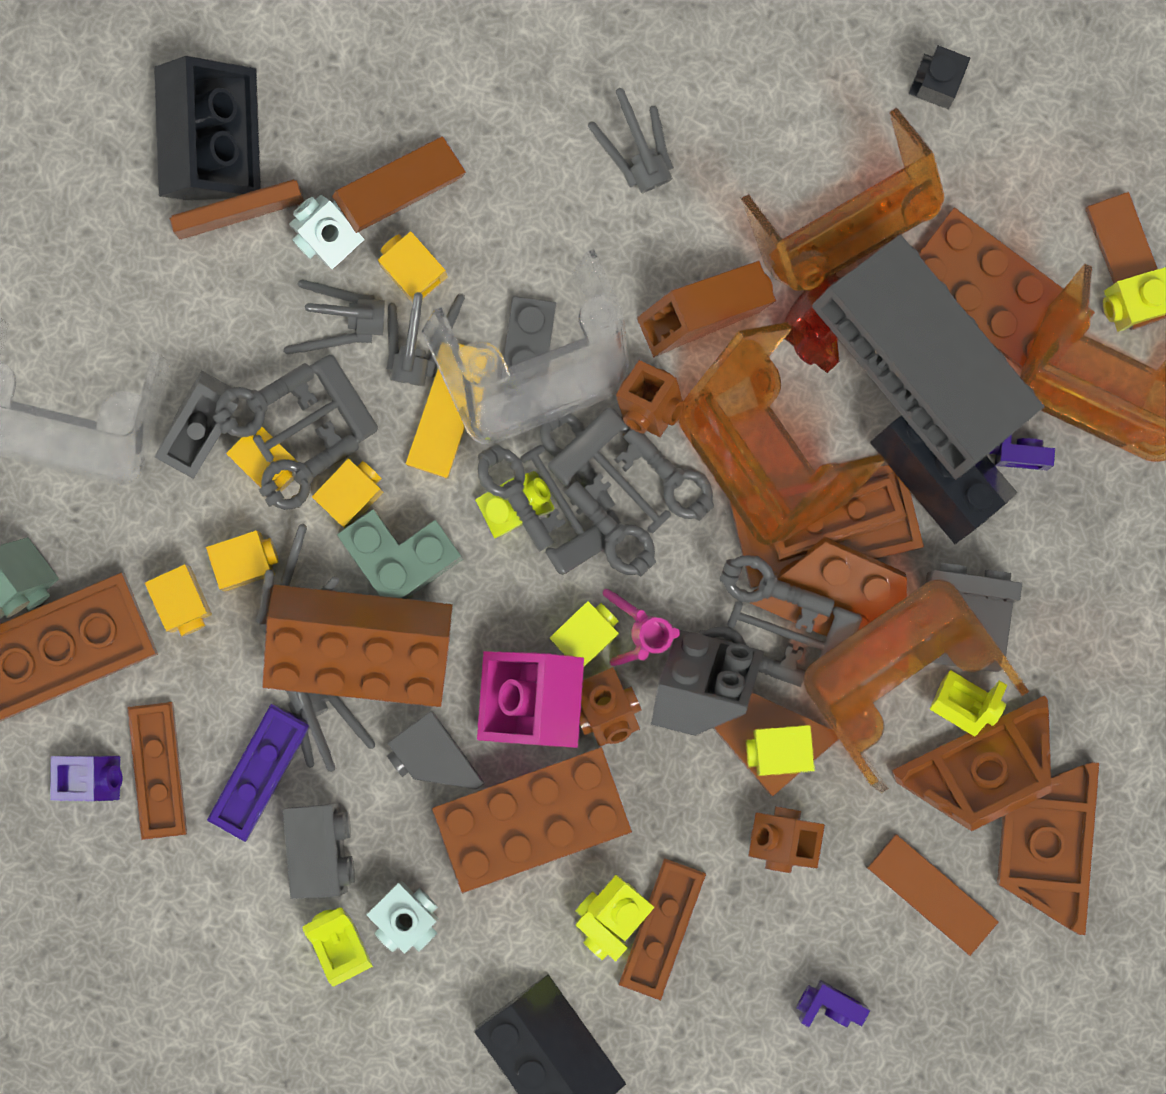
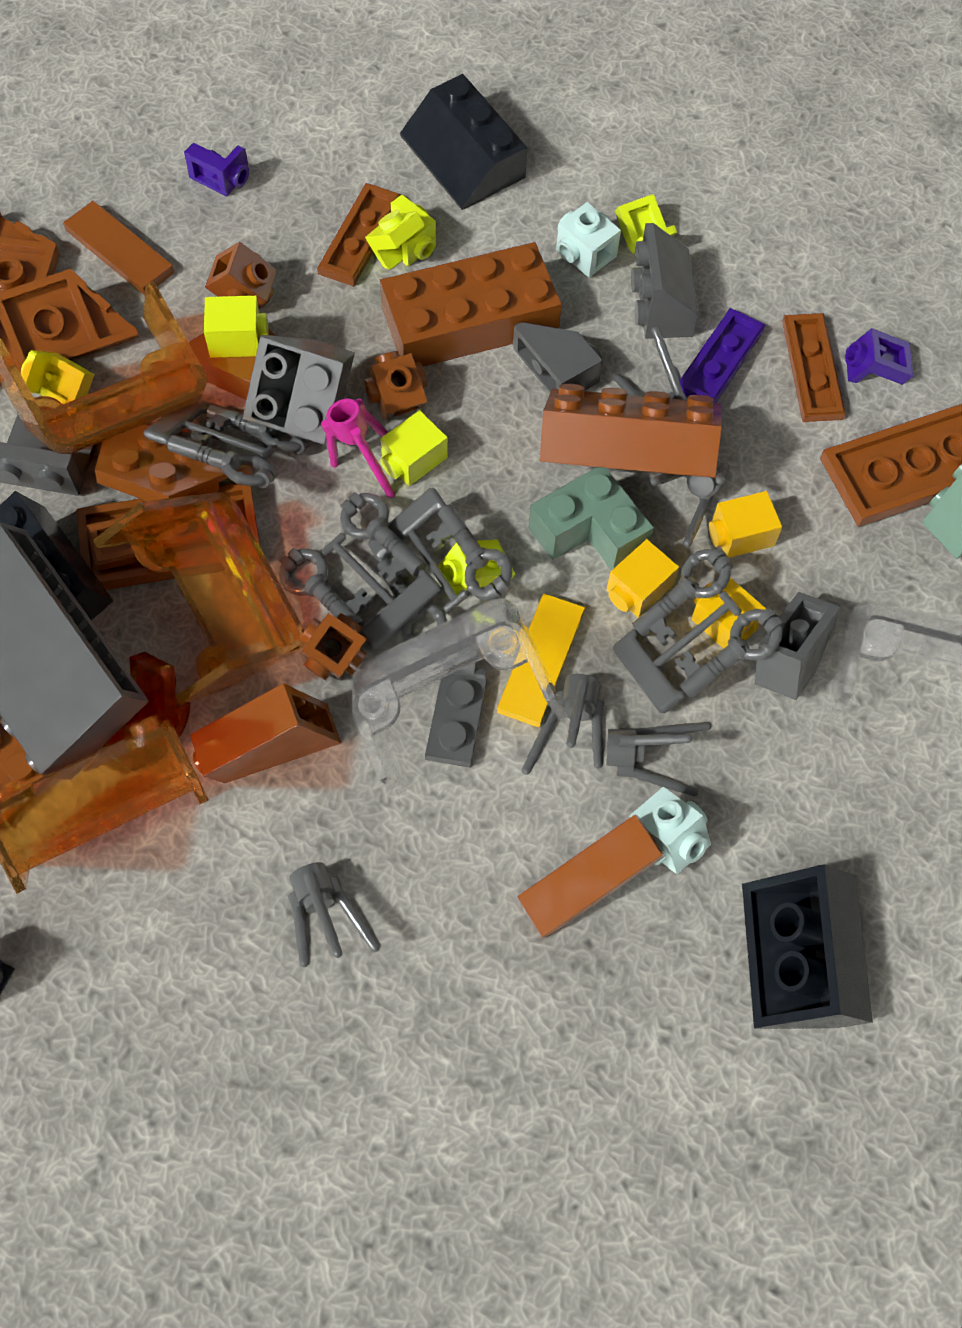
camera: 175 degrees right, 20 degrees down
(179, 600) = (804, 494): yellow brick -> none
(237, 209) = (767, 861): dark orange tile -> none
(411, 265) = (577, 793): yellow brick -> none
(530, 698) = (467, 385): dark pink brick -> none

